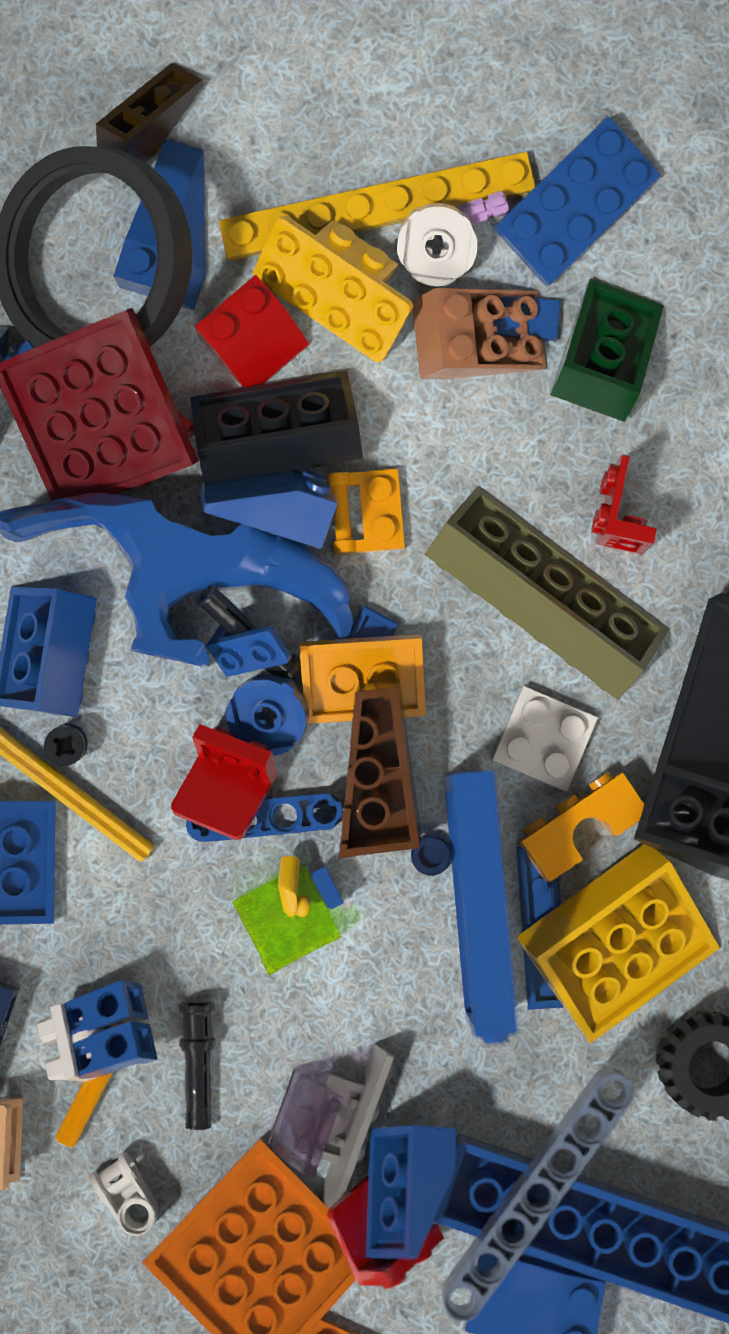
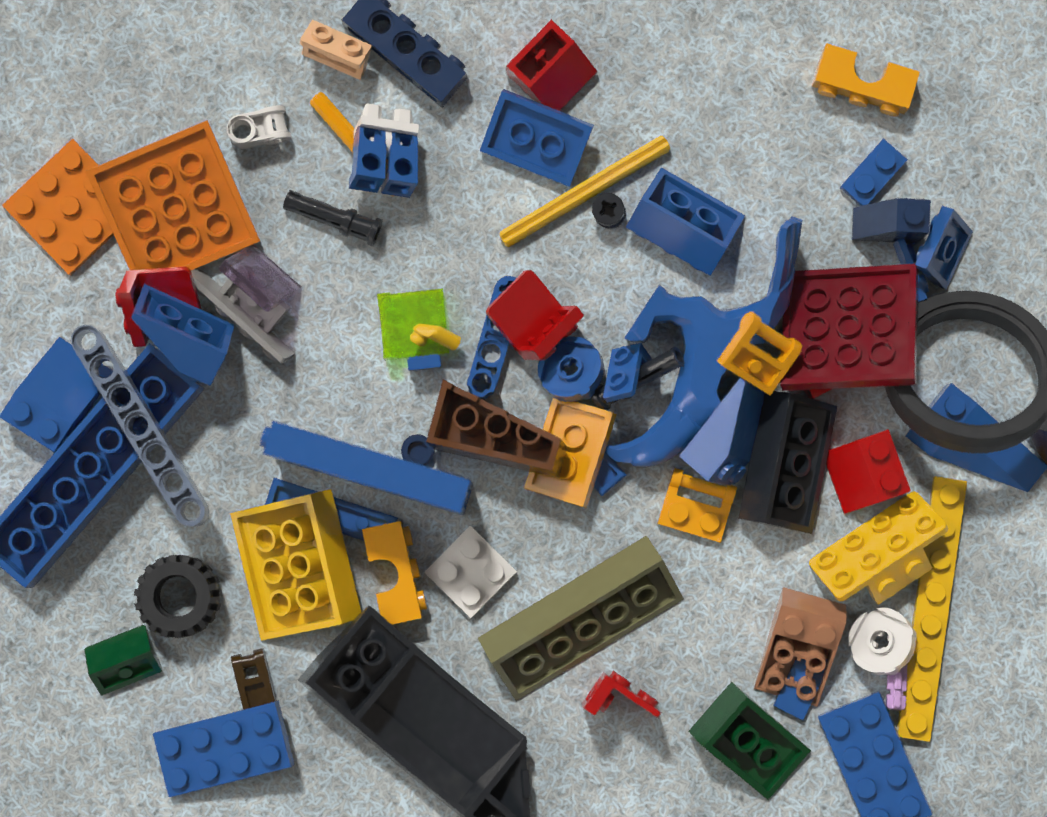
camera: 110 degrees right, 0 degrees up
(179, 504) = (754, 363): none -> light orange plate

